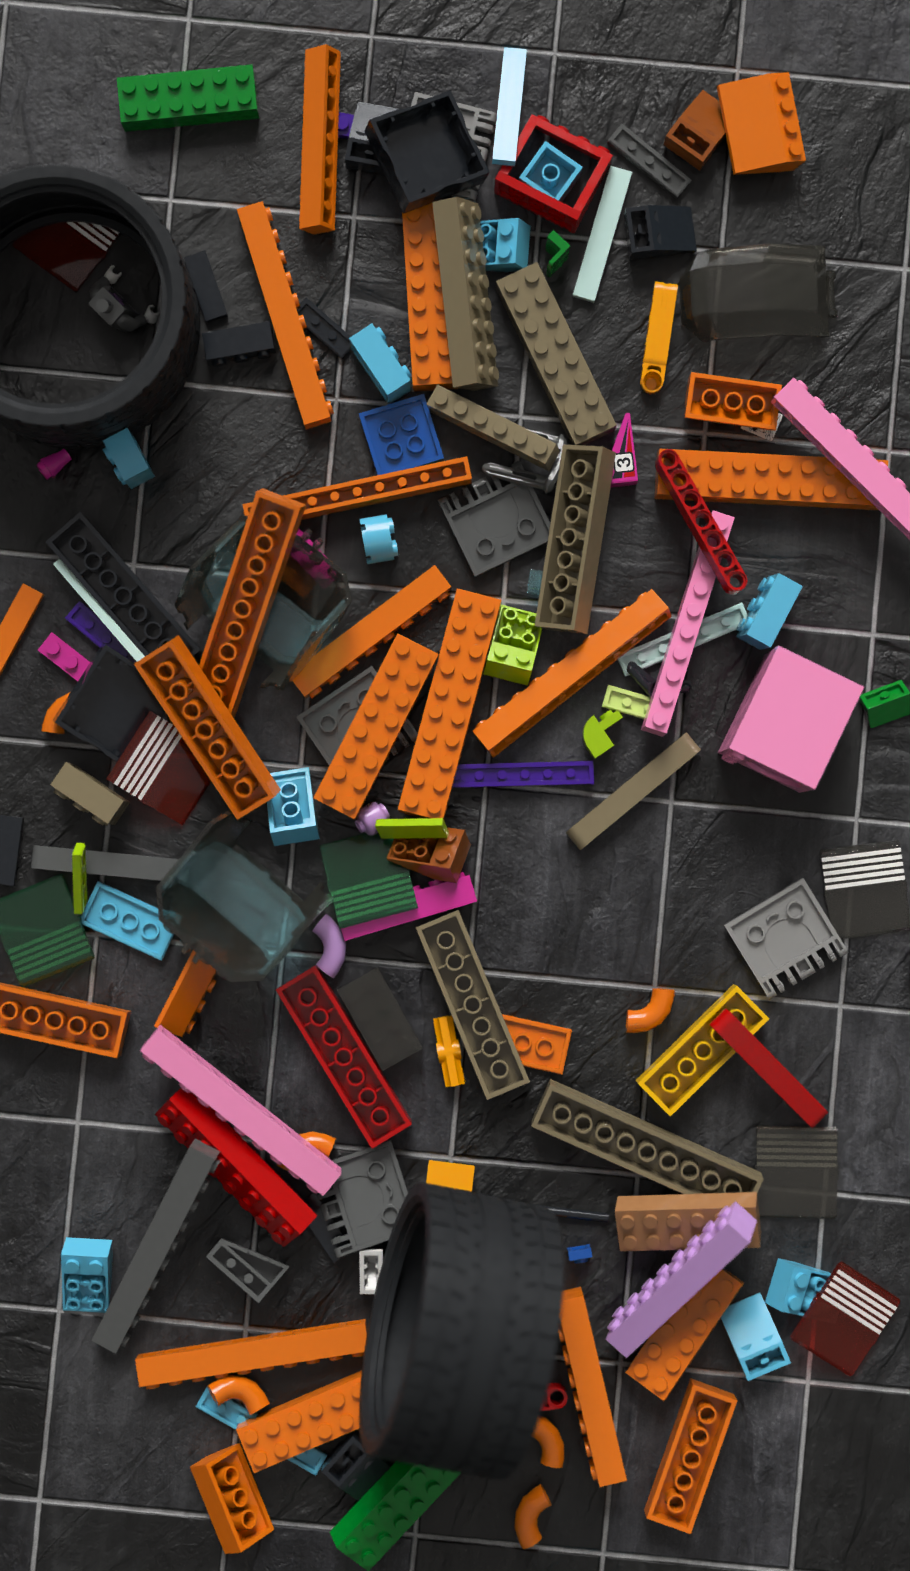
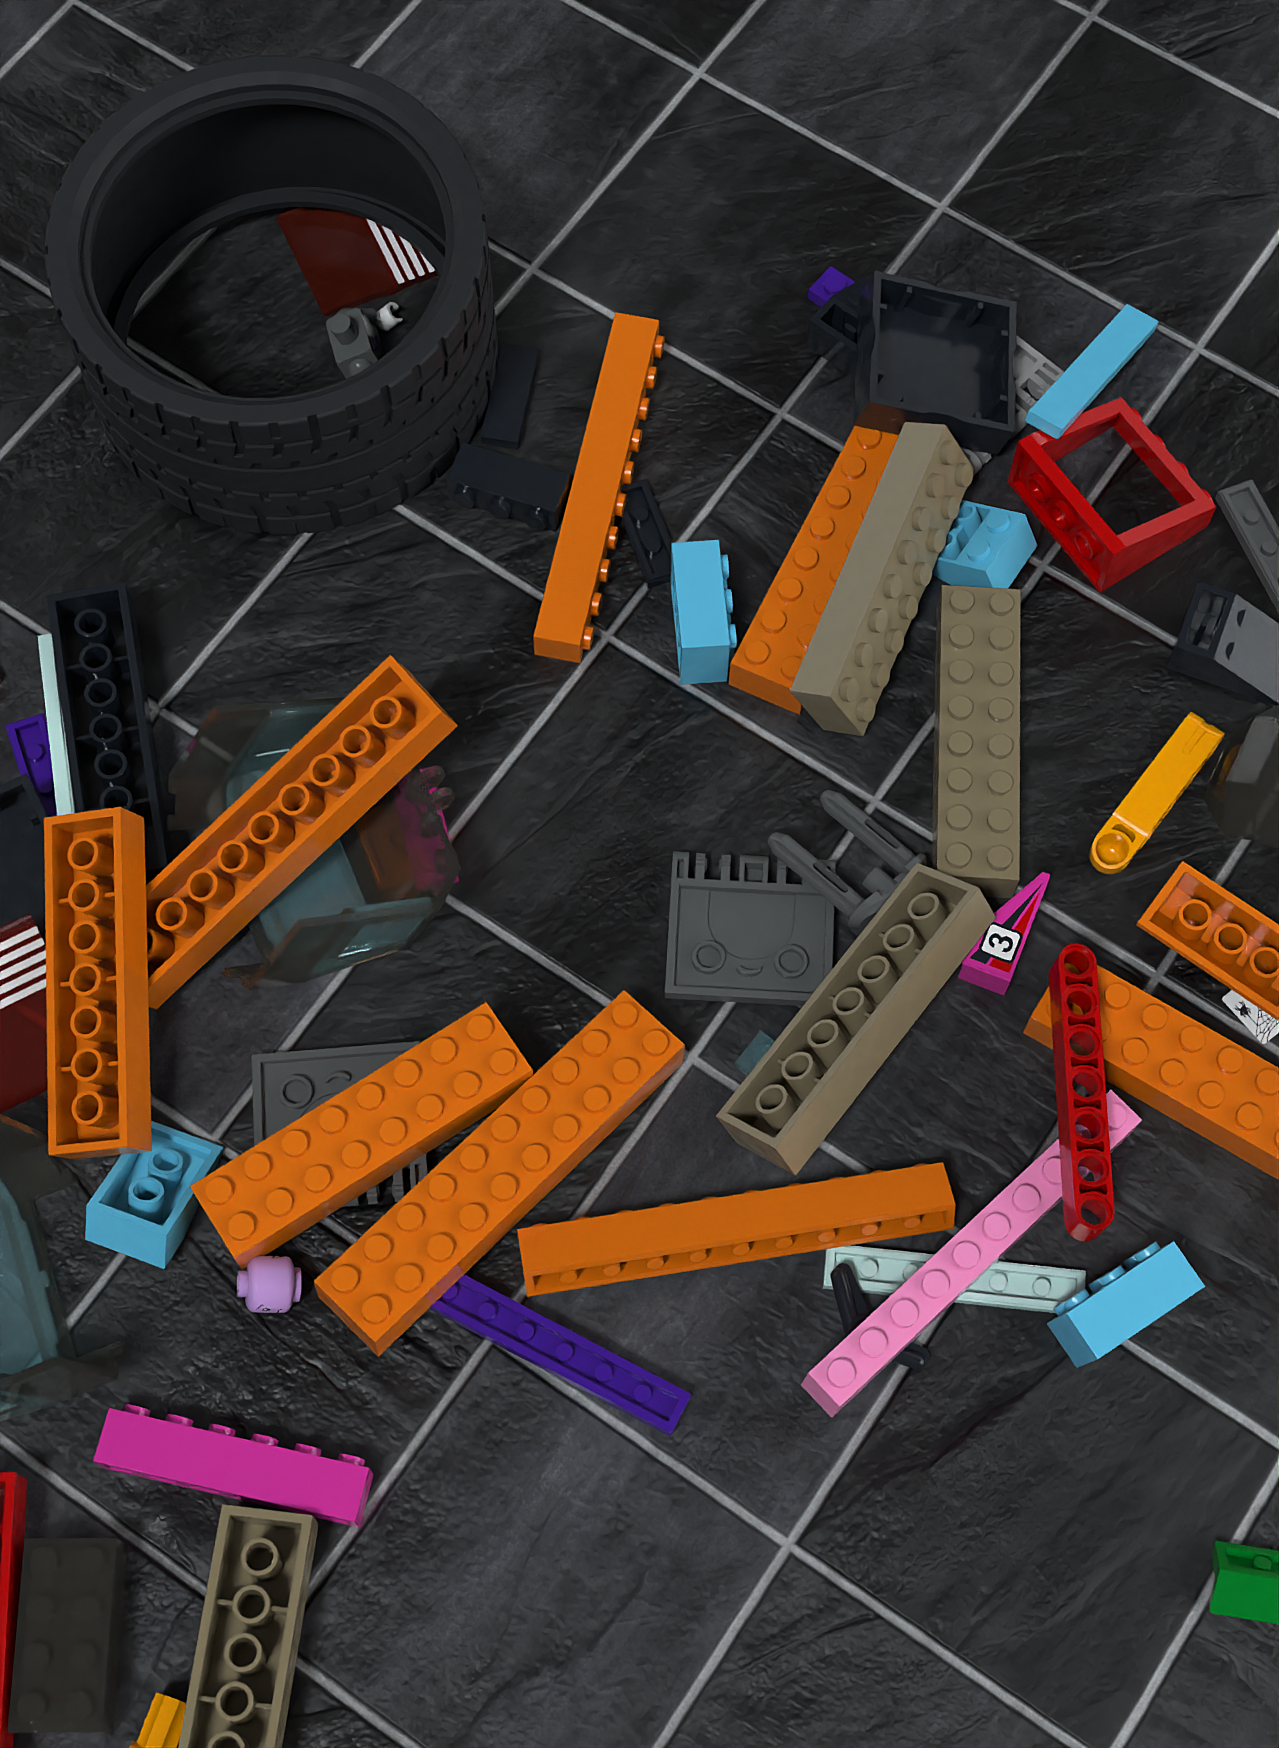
camera: 30 degrees right, 20 degrees down
(52, 464) = (137, 510): dark pink cone -> none
(129, 460) = (244, 551): medium azure brick -> none
(188, 98) = (636, 154): green brick -> none
(320, 139) = (788, 289): orange brick -> none
(333, 943) = (72, 1463): lavender cylinder -> none
(364, 881) = (201, 1378): clear green piece -> none
(371, 631) = (448, 990): orange brick -> none
(378, 539) = (545, 854): medium azure brick -> none
(381, 488) = (595, 786): orange brick -> none
(401, 435) = (671, 734): blue plate -> none
(412, 828) = (319, 1330): lime tile -> none
(433, 857) = (331, 1390): dark orange slope -> none
(493, 427) = (821, 786): dark tan brick -> none
(513, 646) = (663, 1135): lime slope -> none
(551, 172) = (1113, 484): medium azure brick -> none
(558, 249) = (1059, 597): green panel -> none
(595, 737) = (719, 1349): lime brick -> none
(602, 234) = (1141, 613): light aqua tile -> none
(626, 702) = (803, 1331): yellowish green tile -> none
(633, 791) = (731, 1485): dark tan beam -> none
(790, 720) = (1070, 1503): bright pink container -> none

